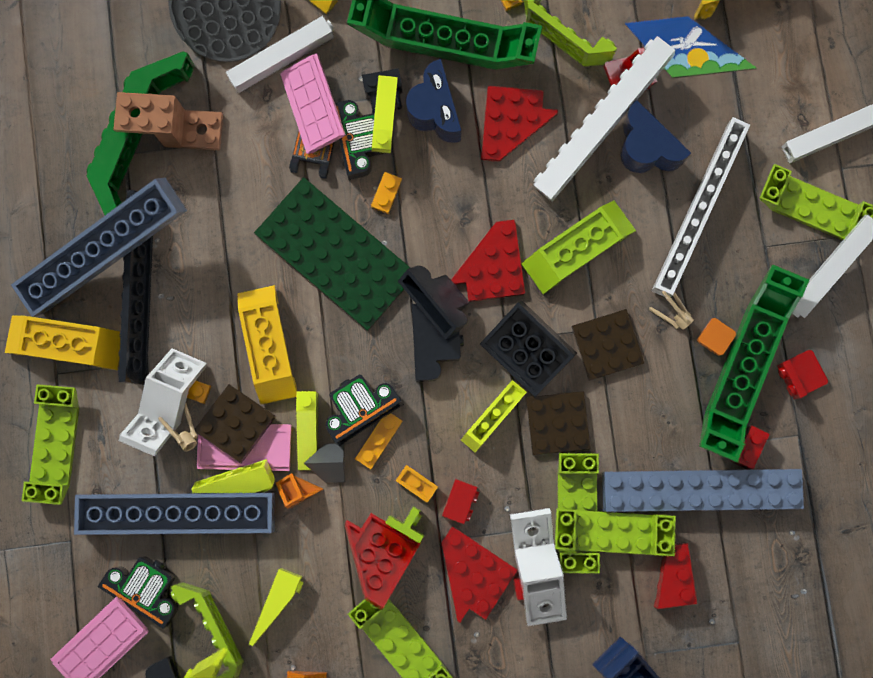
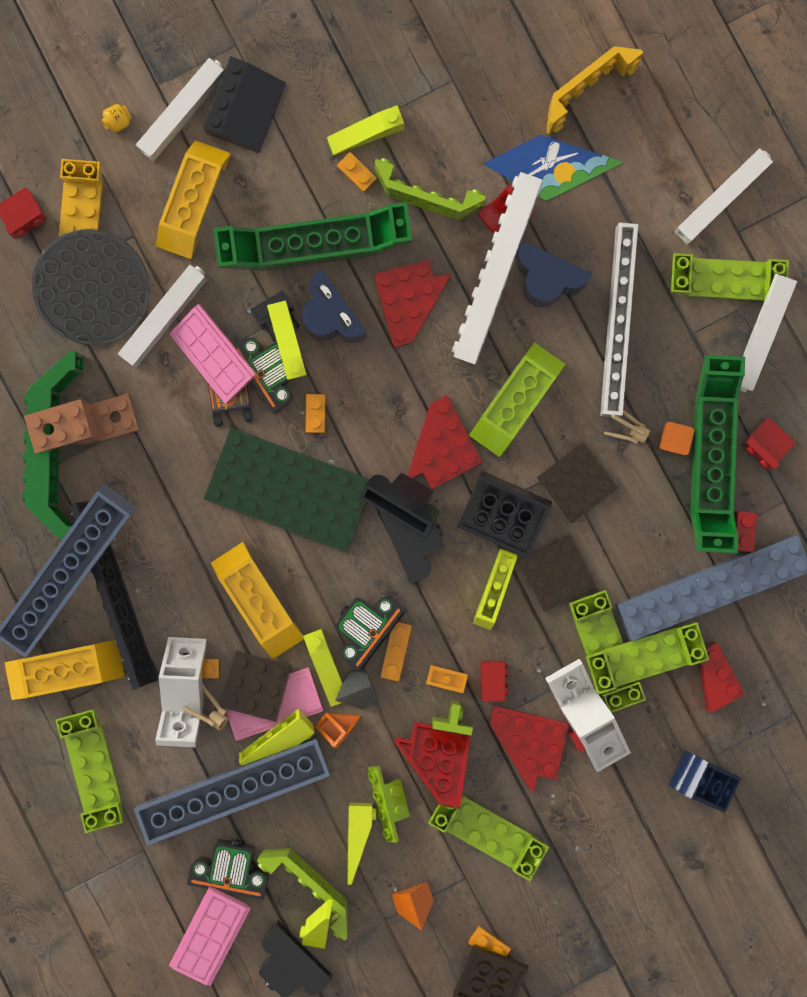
camera: 20 degrees left, 5 degrees up
(319, 581) = (390, 802): none -> lime bracket

